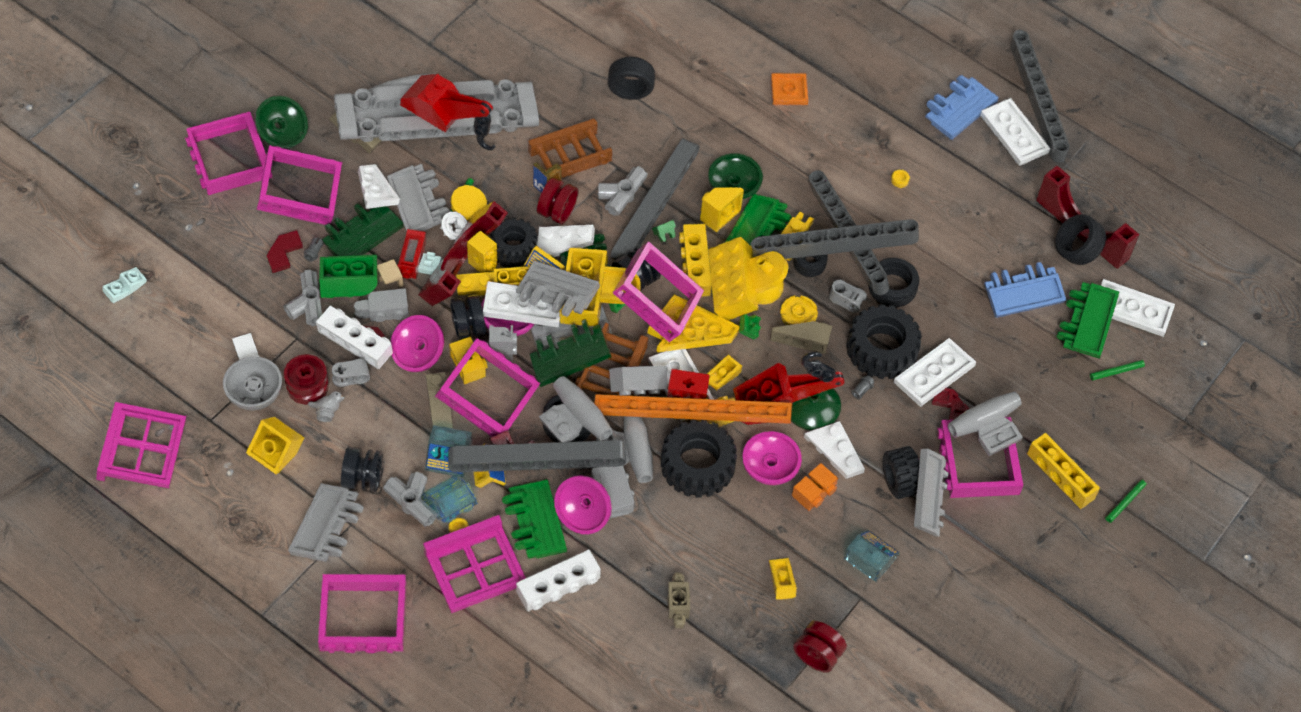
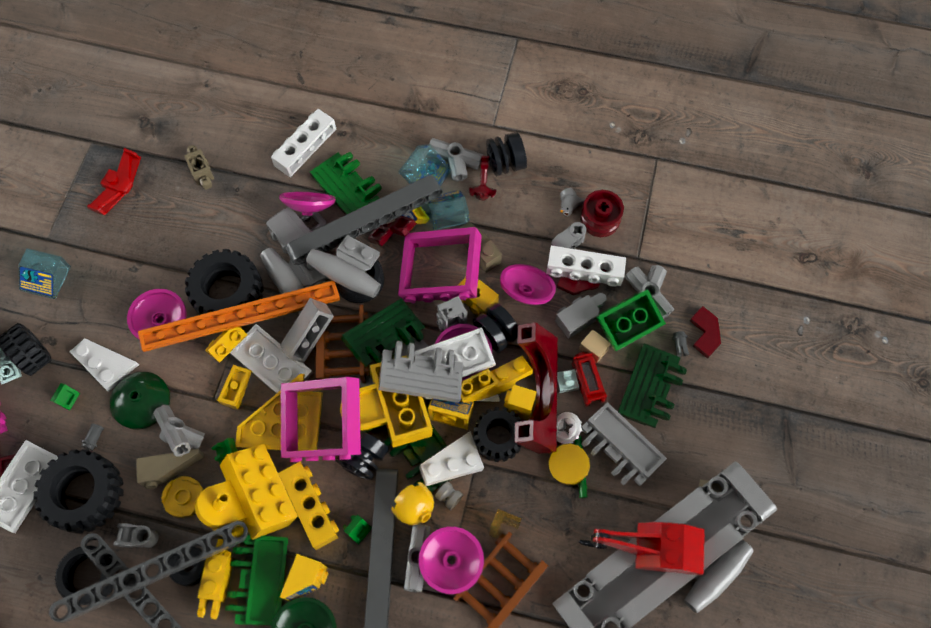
camera: 160 degrees right, 10 degrees up
(113, 439) = (715, 98): dark pink window -> none
(126, 284) = (814, 235): light aqua slope -> none
(219, 128) = (816, 434): dark pink window -> none
(245, 346) = (668, 222): white tile -> none
(252, 383) = (640, 182): light grey piece -> none
(274, 444) = (590, 154): yellow slope -> none
(287, 115) = (798, 453): dark green dish -> none
(293, 208) = (725, 366): dark pink window -> none
(325, 517) = (512, 109): light grey hinge -> none
(362, 582) = (450, 81): dark pink window -> none
(375, 188) = (666, 433): white wing -> none
(402, 453) = (482, 191): none -> dark red piece
(457, 524) = (404, 153): yellow tile -> none
(463, 540) = (393, 147): dark pink window -> none
(557, 200) = (479, 500): dark red wheel -> none
(577, 217) = (449, 495): none -> light grey wheel
(601, 167) = (434, 563): none -> dark pink dish
(610, 213) = (414, 504): none -> yellow cylinder
(688, 384) = (268, 348): red brick -> none
(771, 624) = (116, 183): none -> red plate
(778, 386) = (172, 374): red slope -> none
(782, 578) = (118, 224): yellow slope -> none
(785, 348) = (175, 433): none -> light grey piece
(812, 491) = (111, 312): orange piece -> none
(820, 646) = (64, 168): dark red wheel -> none
(879, 427) = (65, 396): none -> green tile

